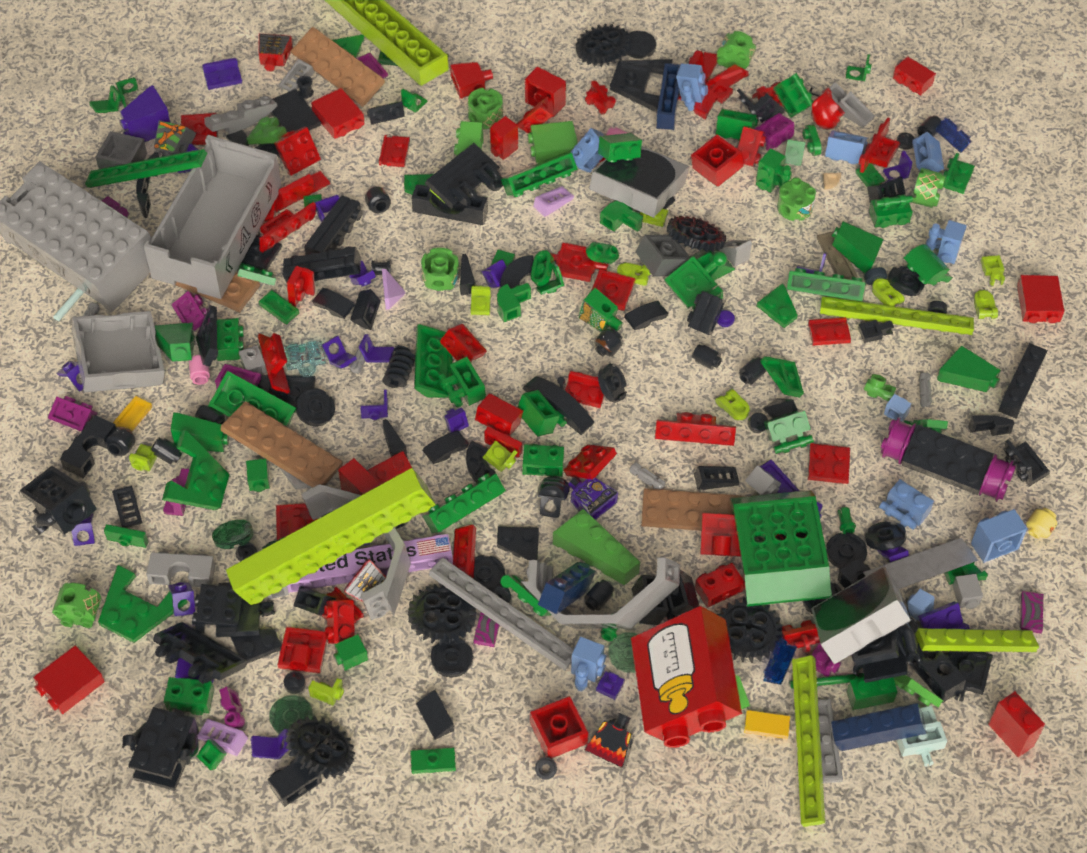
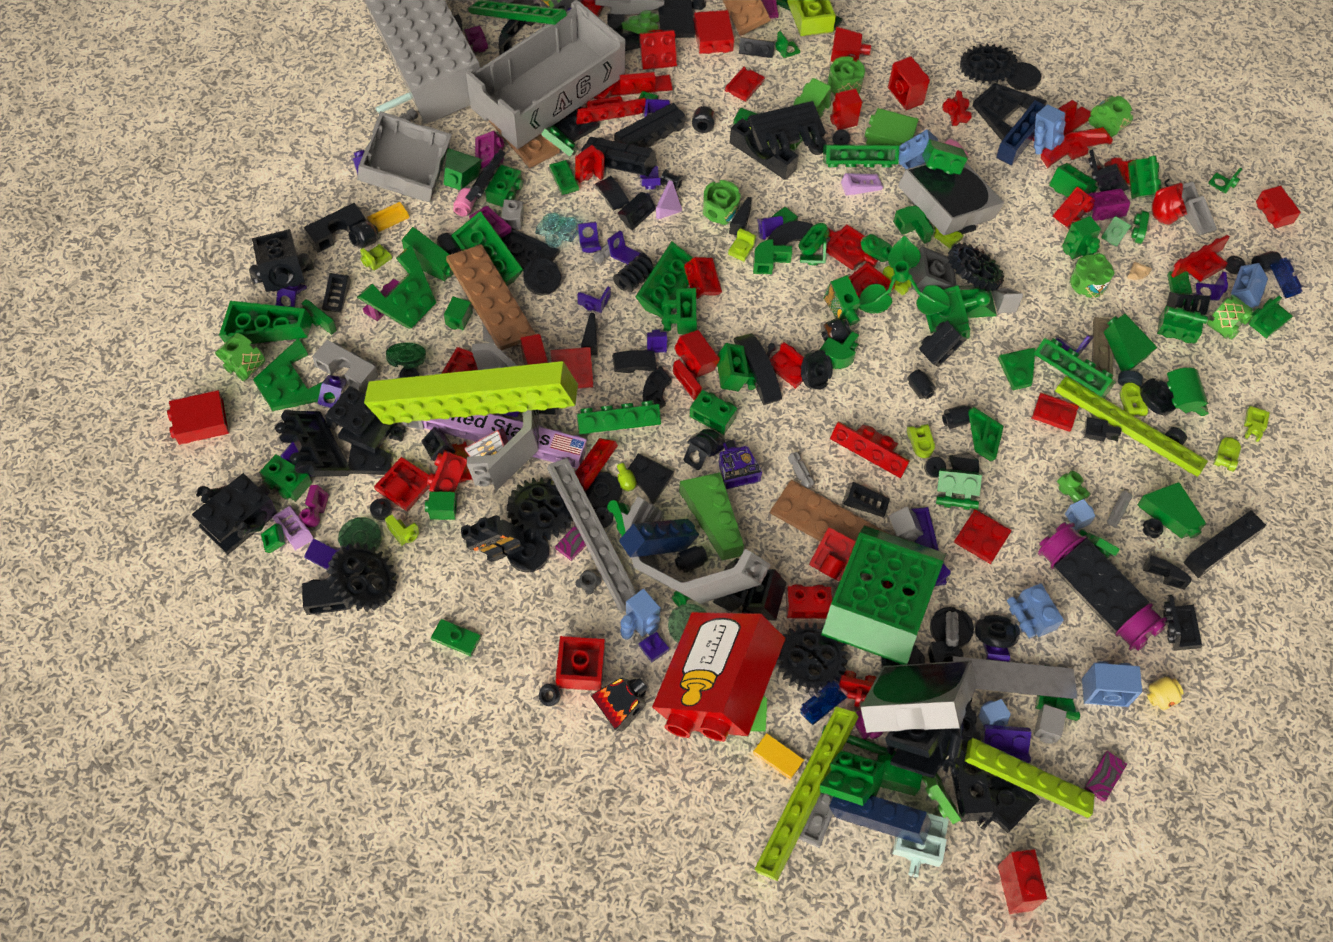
camera: 25 degrees right, 5 degrees up
(71, 414) = (338, 193): magenta bracket -> none
(79, 563) = (265, 322): none -> green wedge
(166, 450) = (389, 255): black brick -> none
(274, 359) = (528, 221): red bracket -> none
(421, 656) = (494, 537): none -> black hips
(435, 715) = (481, 598): black slope -> none
(500, 457) = (676, 391): lime bracket -> none
(501, 552) = (626, 478): none -> lime cylinder
(511, 166) = (841, 137): none -> black tile
(523, 652) = (586, 576): none -> dark grey plate
(537, 115) = (888, 101): red bracket -> none
(590, 461) = (754, 432): red plate -> none
(626, 359) = (841, 354): none -> green brick
(635, 251) = (902, 258): none -> green plant
(645, 314) = (886, 321): black slope -> none
(717, 160) = (1035, 208): red brick -> none
(726, 318) = (960, 357): dark purple plate -> none
(841, 708) = (853, 778): none -> green brick
(845, 147) = (1169, 245): medium blue brick -> none
(846, 521) = (967, 598): green pin -> none
(849, 550) = (952, 629): none -> light grey axle
(951, 240) = (1225, 376): medium blue brick -> none
(960, 389) = (1153, 523): none -> black plate
(1040, 298) = (1289, 472): red brick -> none

